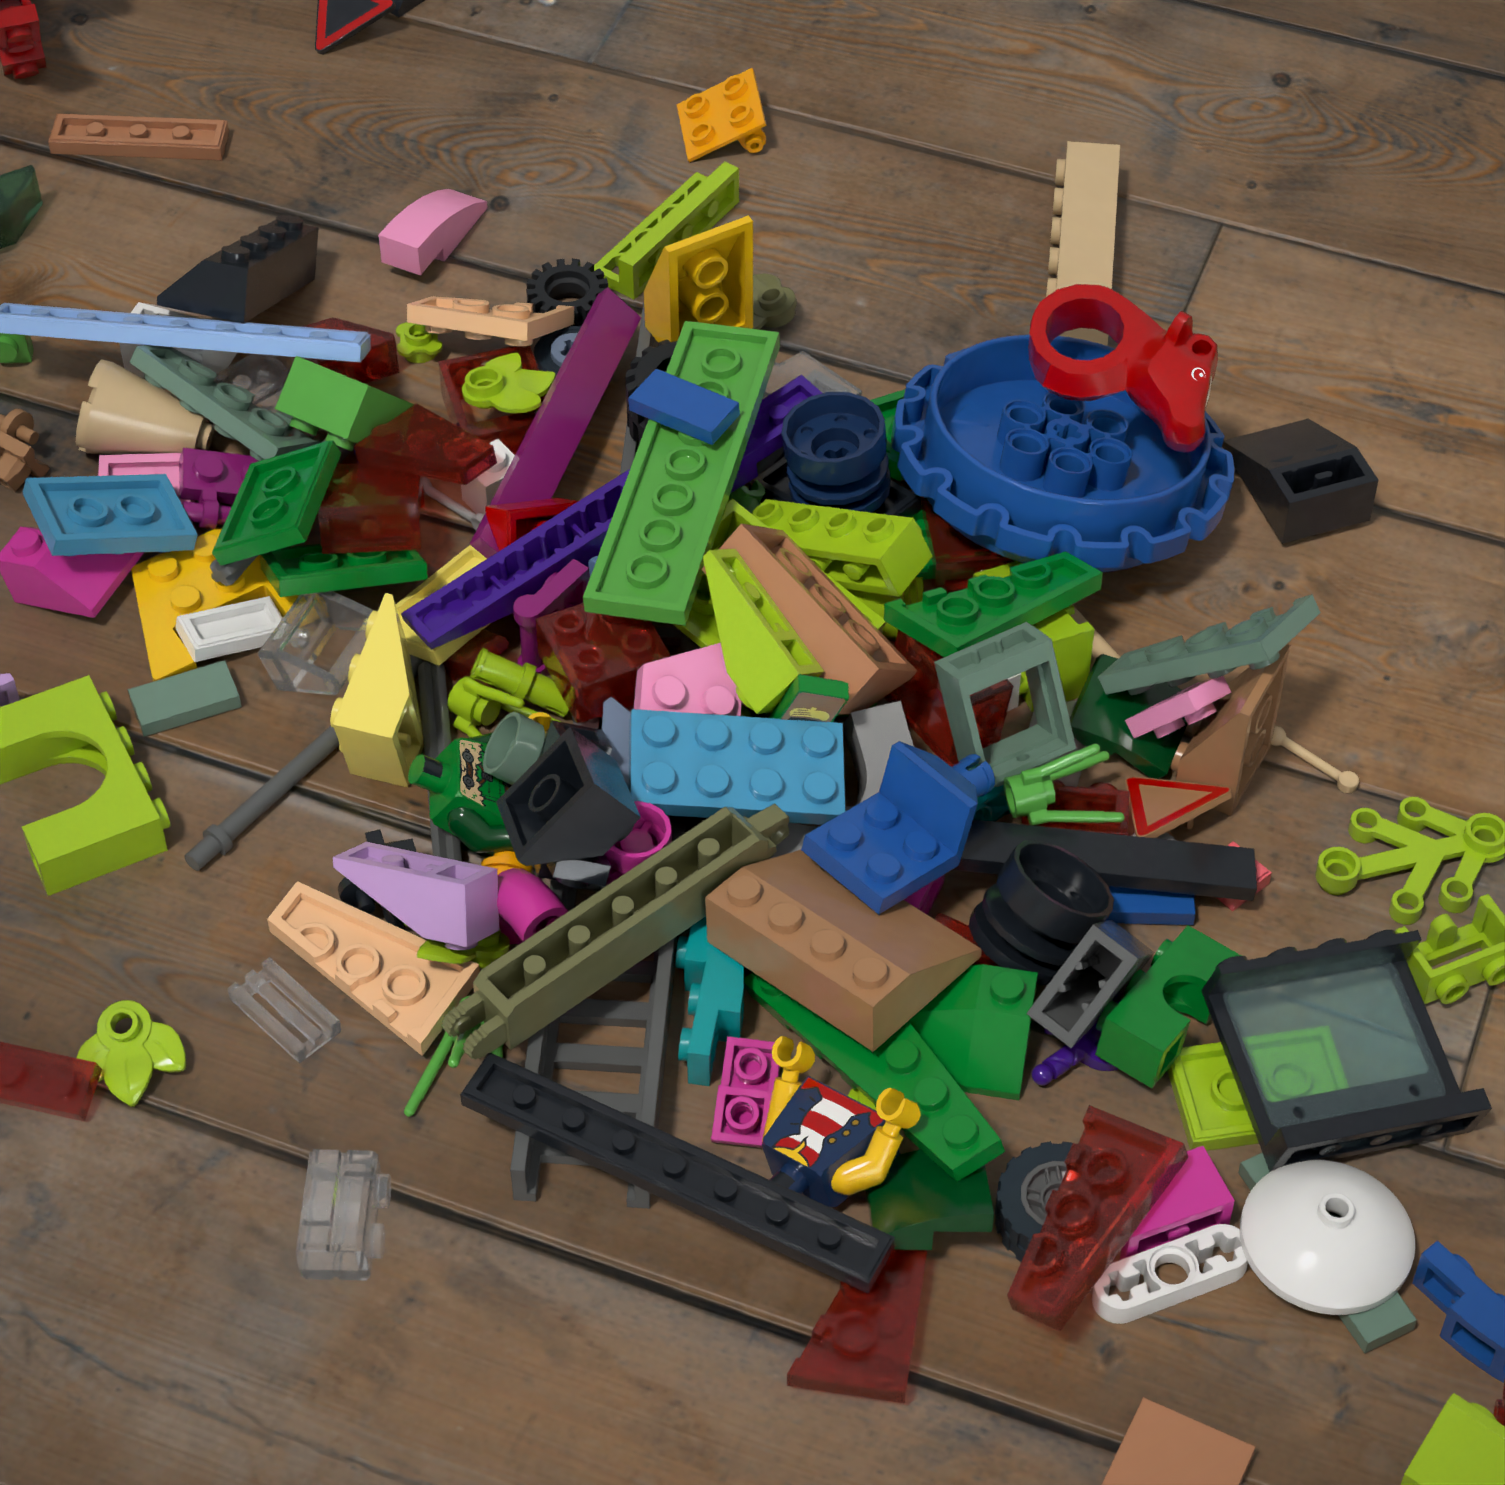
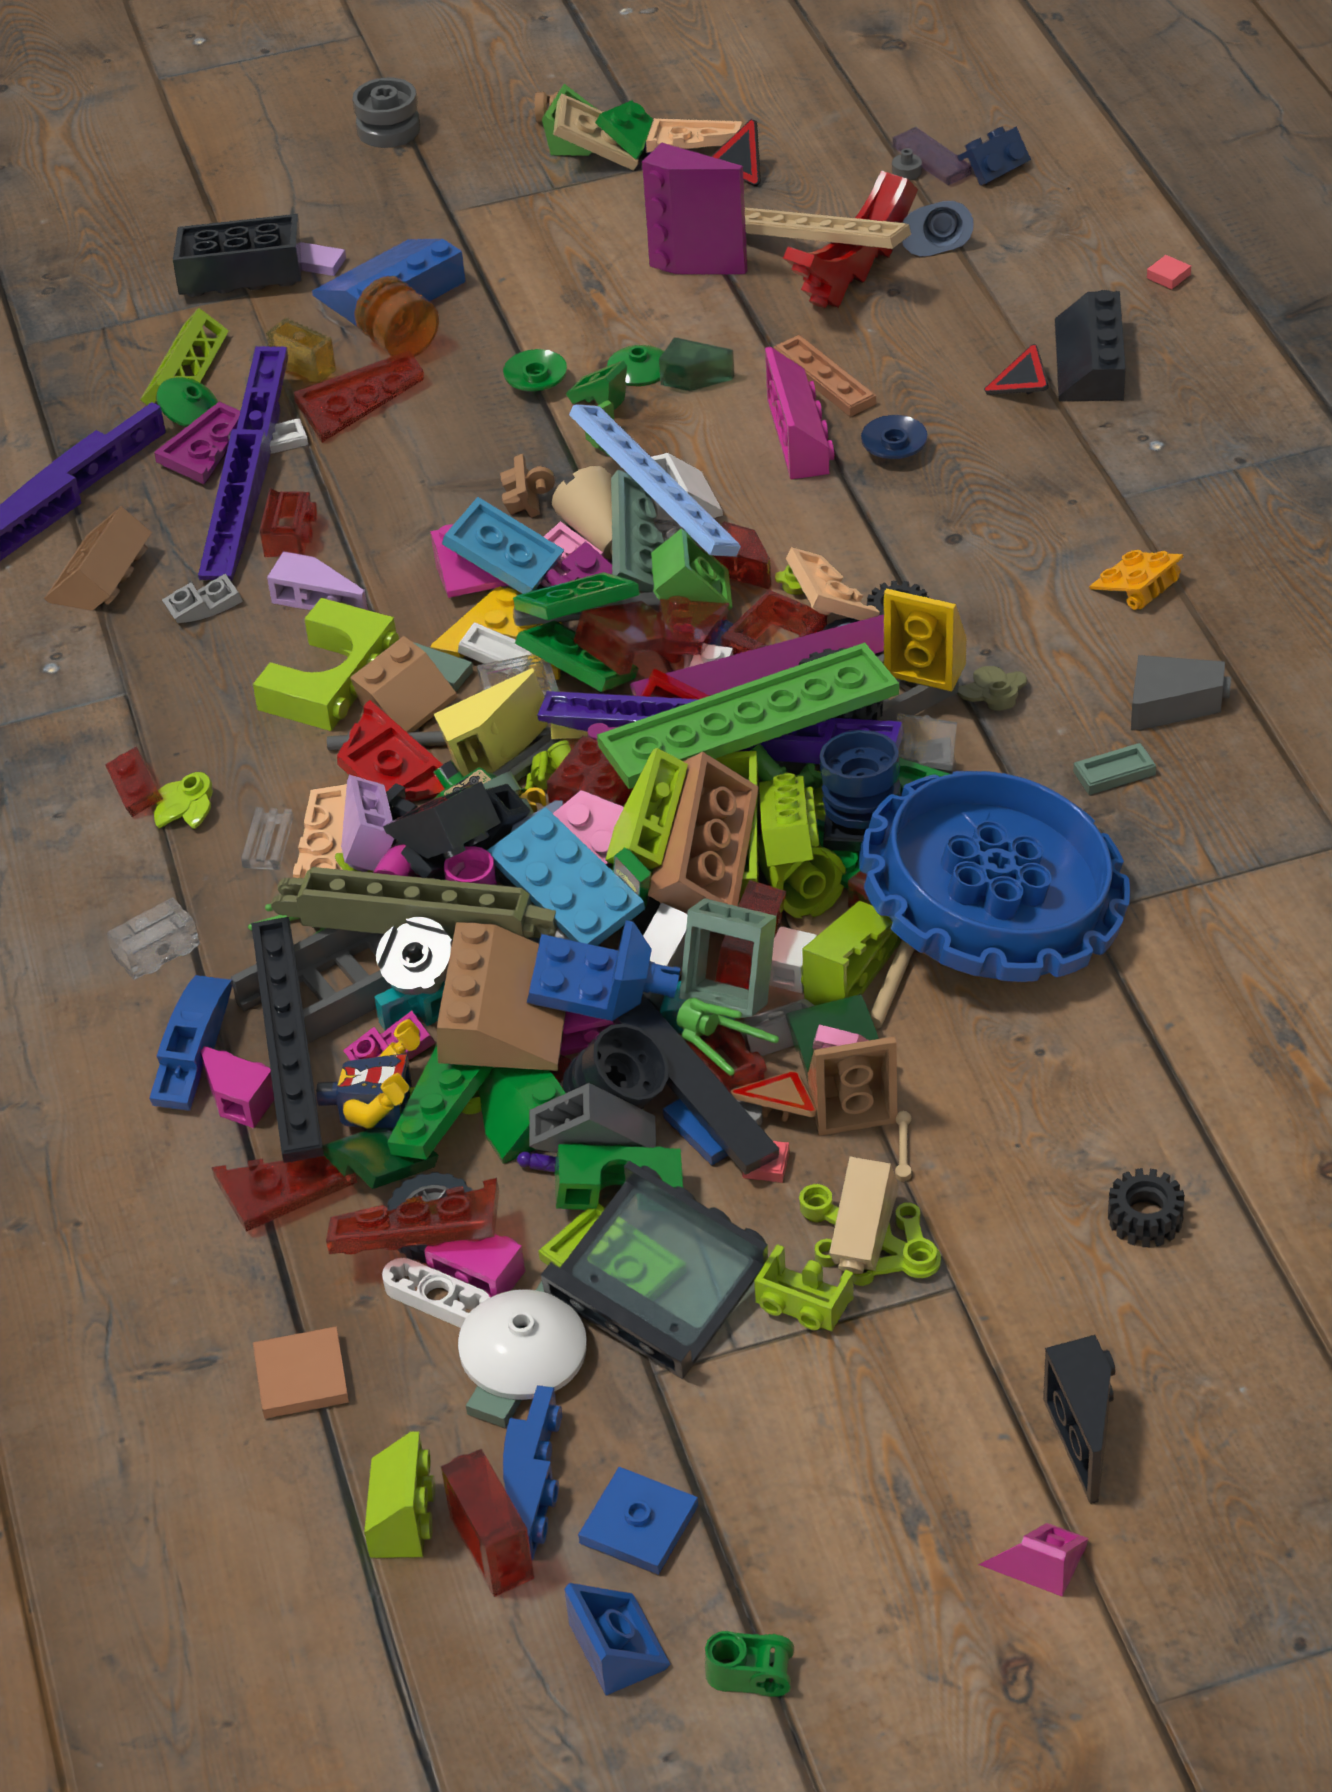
camera: 55 degrees right, 5 degrees down
(185, 188) = (797, 417): none -> dark pink slope
(204, 739) = (404, 685): none -> medium nougat slope
(248, 273) = (741, 475): black slope -> none
(299, 821) = (389, 755): none -> red wing
(312, 144) = (894, 436): none -> dark blue dish
(429, 229) = (886, 522): bright pink slope -> none
(506, 385) = (775, 624): lime plate -> none
(561, 1271) = (190, 1028): none -> blue slope
(672, 1275) = (238, 1086): none -> dark pink slope
(681, 1000) = (427, 973): none -> plate
(684, 406) = (785, 681): blue tile -> none
(685, 213) = (1022, 616): lime fence -> none
(910, 192) = (1176, 690): none -> dark grey slope
(961, 298) = (1114, 768): none -> sand green tile
(994, 603) = (813, 910): green wing -> none
(1086, 222) = (1221, 793): tan brick -> none
(1160, 369) = (1069, 852): red animal -> none
(1210, 651) = (870, 1019): sand green wing -> none
(1304, 478) = (1130, 1004): black slope -> none
(1421, 837) = (863, 1214): none -> tan slope

